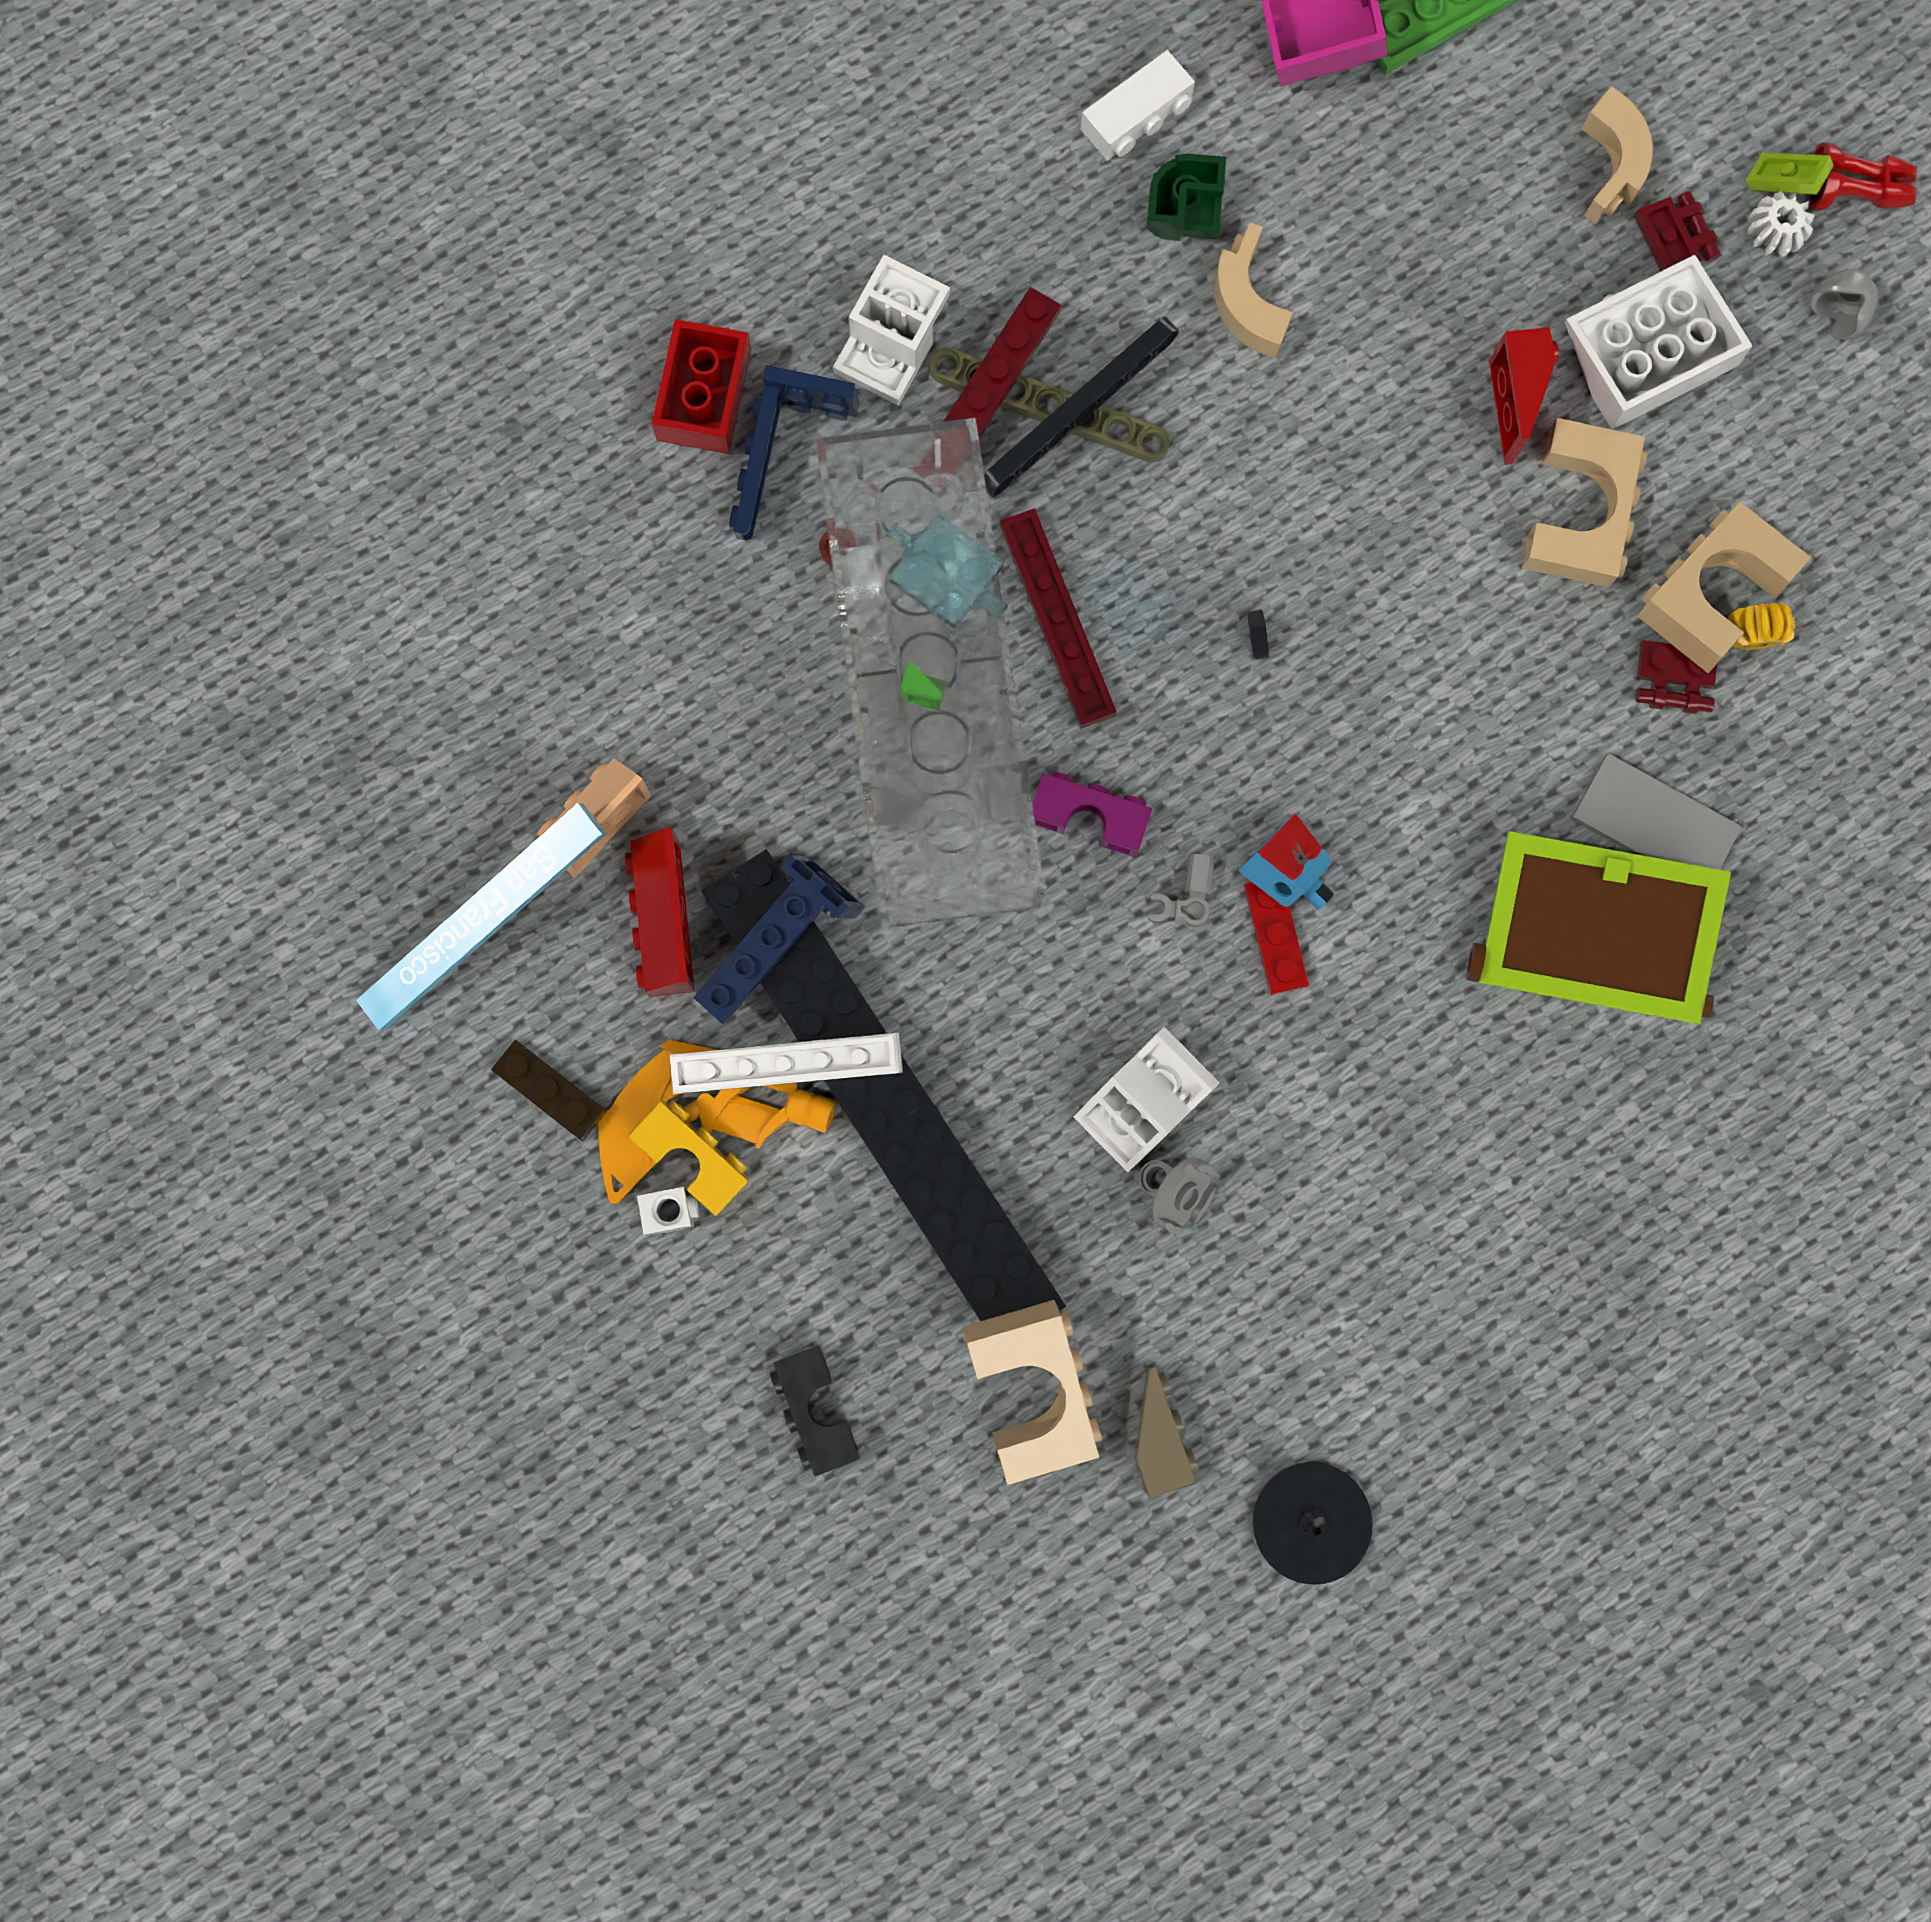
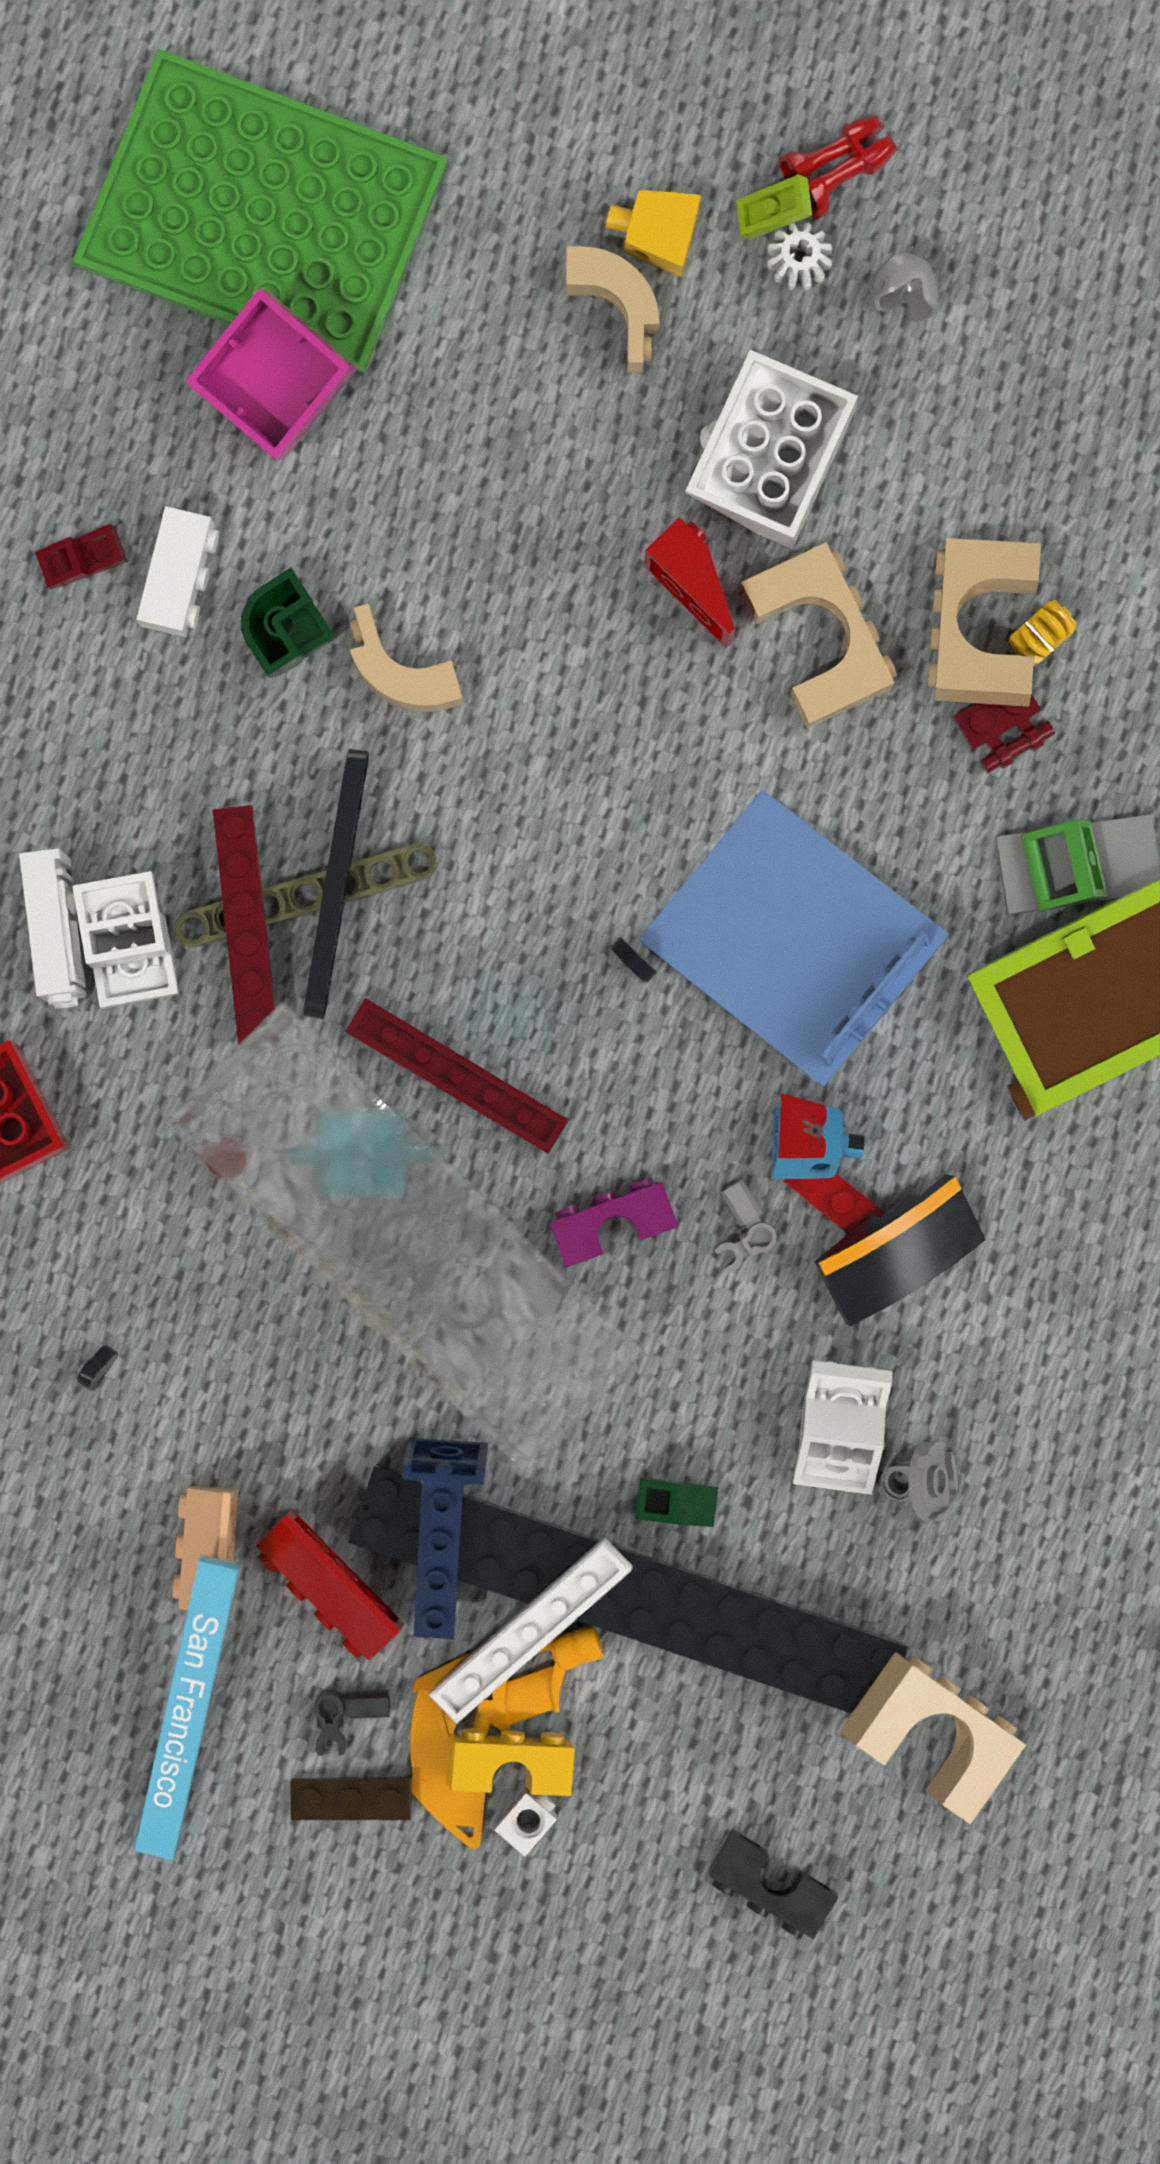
camera: 35 degrees left, 5 degrees up
(589, 1009) = (332, 1707): none -> pearl dark grey bar
(618, 623) = (97, 1367): none -> black tile
(802, 393) = (93, 1124): dark blue bracket -> none
(834, 291) = (53, 927): none -> white door
(922, 689) = (420, 1265): bright green slope -> none
(973, 1057) = (675, 1502): none -> dark green slope
(1069, 46) = (81, 557): none -> dark red slope
(1158, 1448) = (1070, 1702): dark tan slope -> none
(1295, 1000) = (900, 1250): none -> black slope
(1394, 709) = (793, 937): none -> medium blue door
(1665, 815) = (1083, 859): none -> bright green tile
(1667, 234) = (714, 340): dark red plate -> none
(1689, 127) = (658, 227): none -> yellow torso

